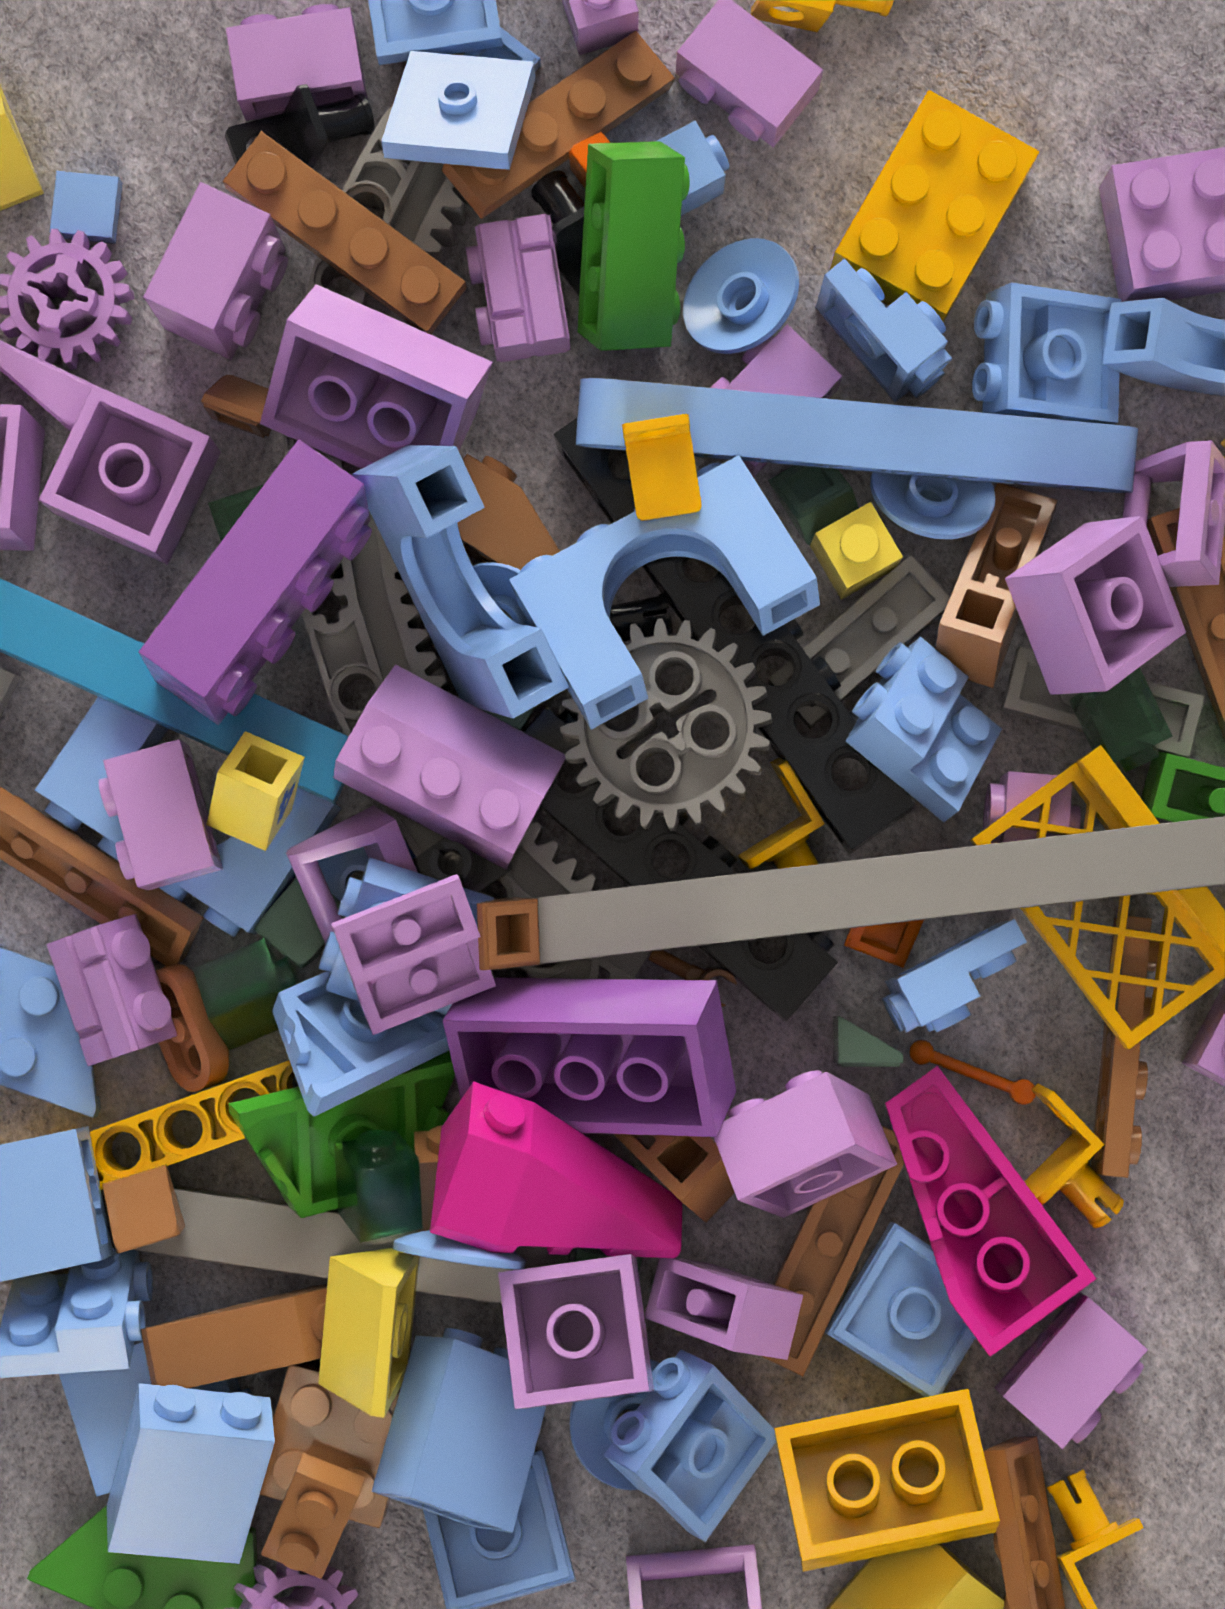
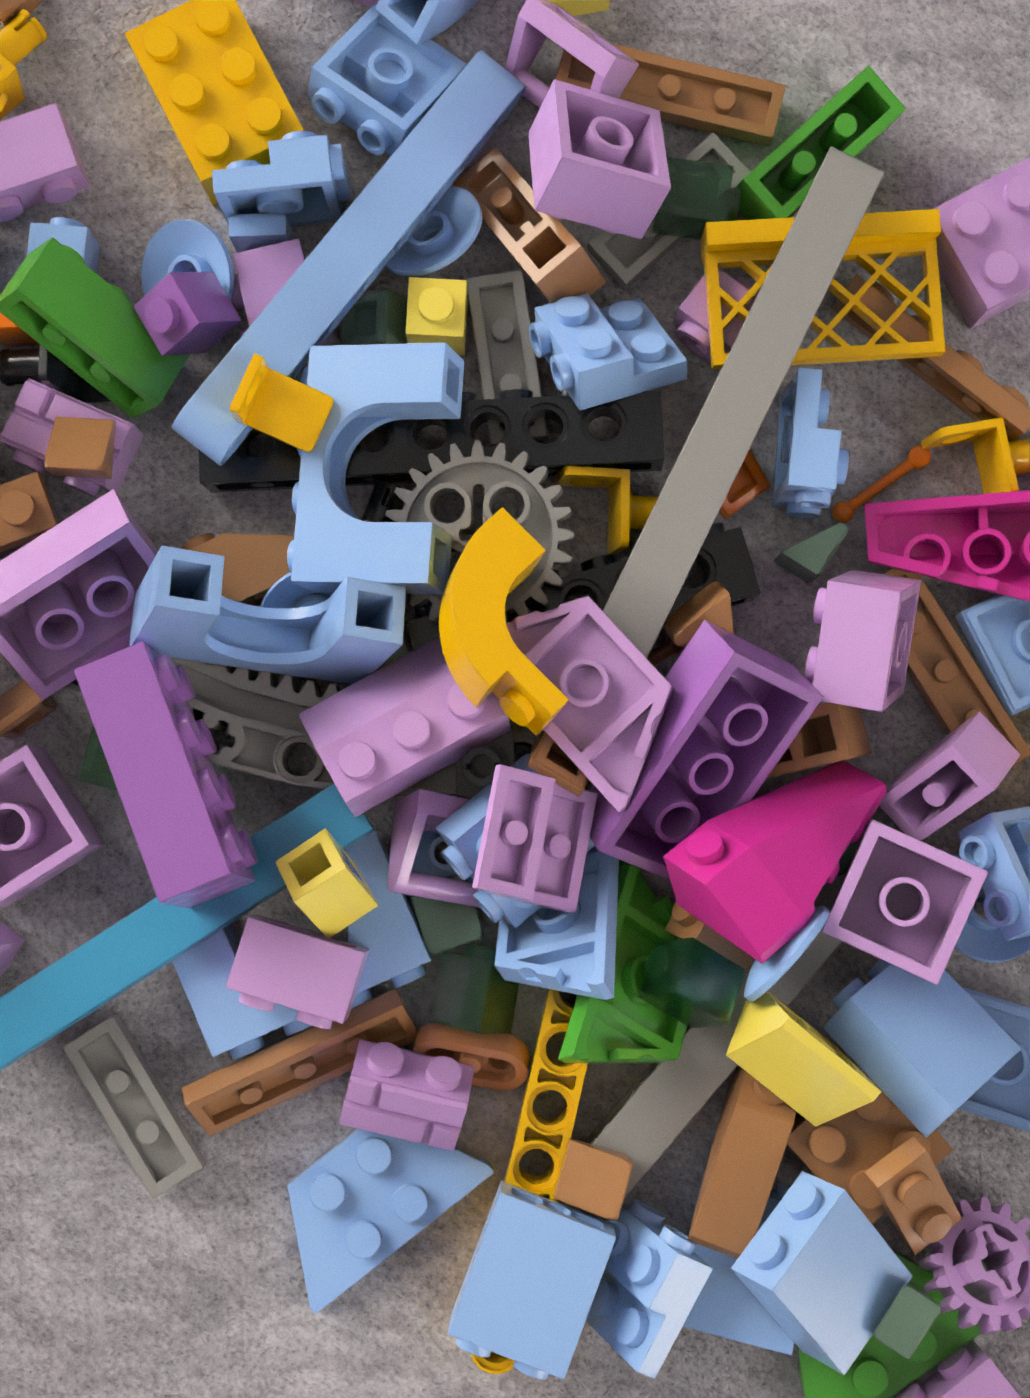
camera: 60 degrees left, 0 degrees up
(195, 1580) = (907, 1320): none -> sand green slope
(514, 306) = (81, 448): none -> medium nougat slope
(568, 772) = (475, 626): none -> yellow arch
(579, 909) = (610, 691): none -> lavender wing
(702, 320) = (187, 313): none -> medium lavender brick
(734, 976) = (710, 603): none -> medium nougat slope
(828, 334) = (258, 230): none -> light blue tile

